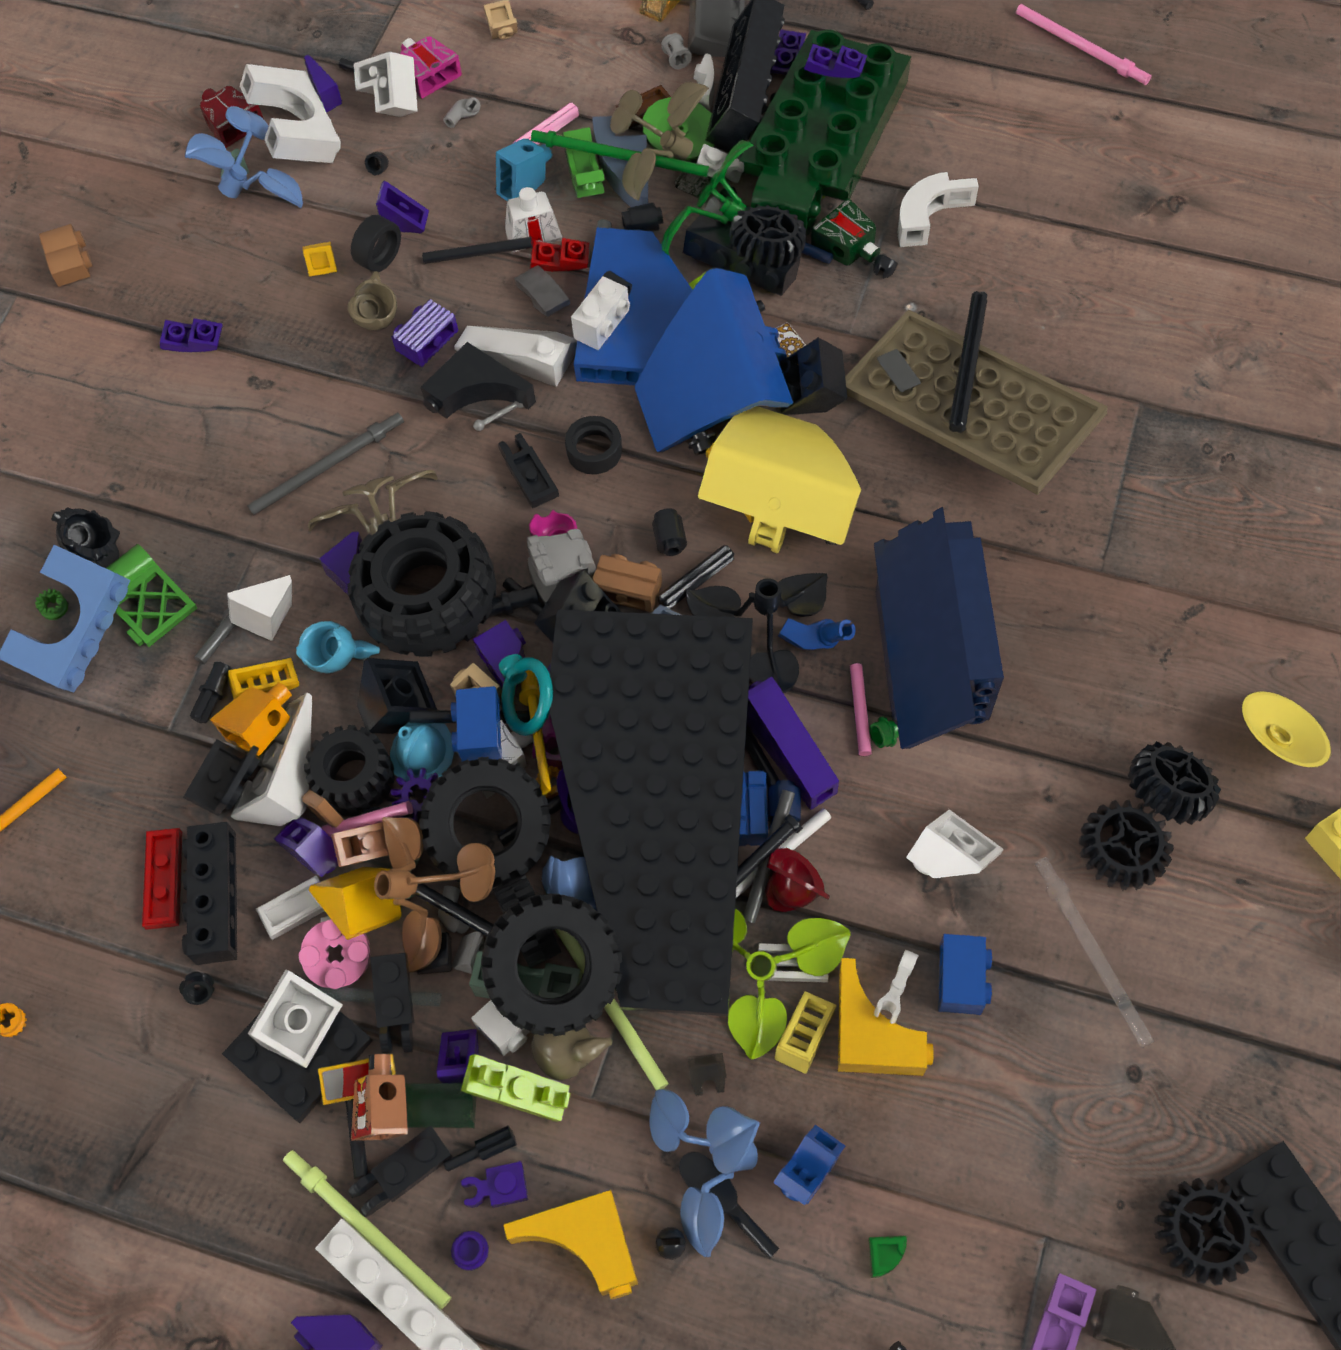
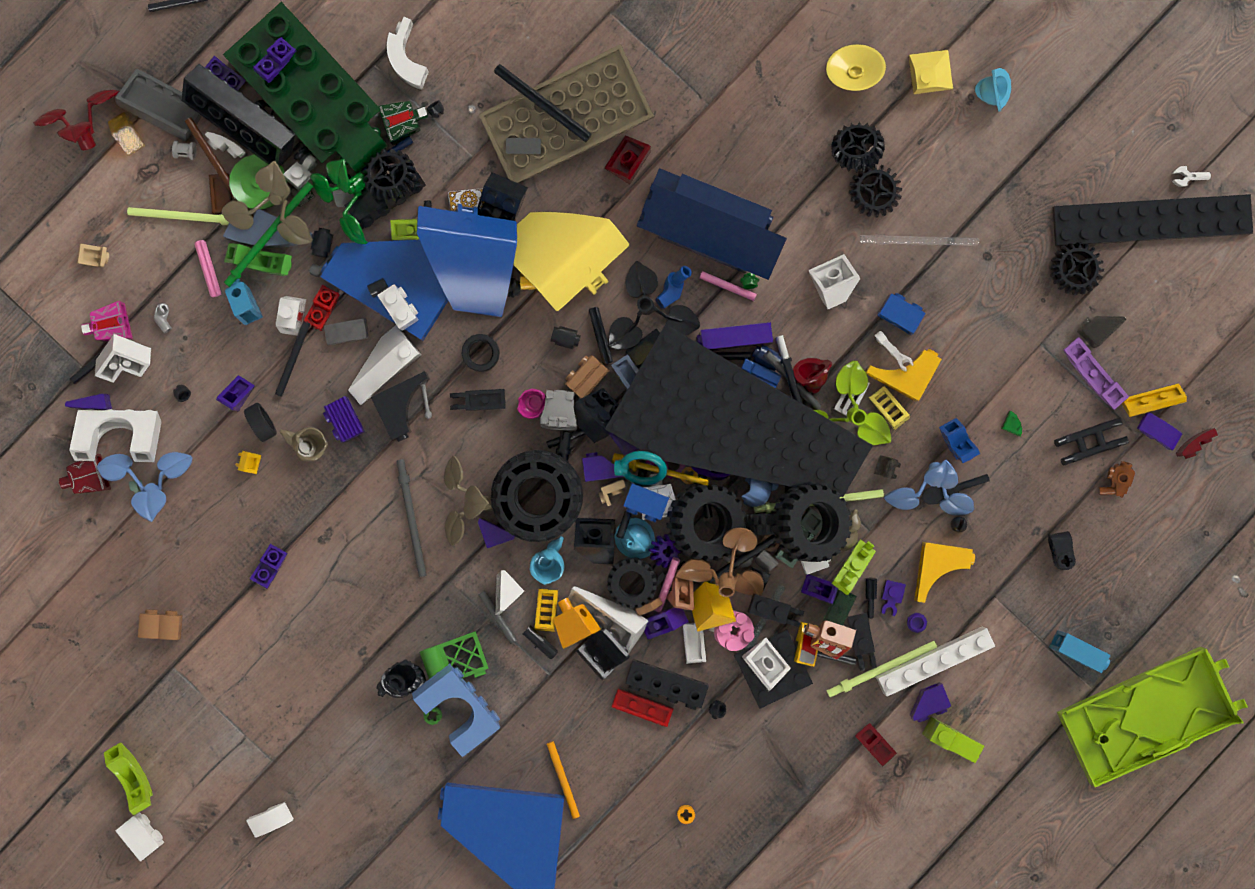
camera: 70 degrees left, 25 degrees up
(229, 1283) = (876, 744): none -> dark red slope
(593, 74) = (177, 215): none -> yellowish green bar
(684, 71) = (210, 154): none -> reddish brown bar
(962, 504) = (628, 159): none -> dark red slope

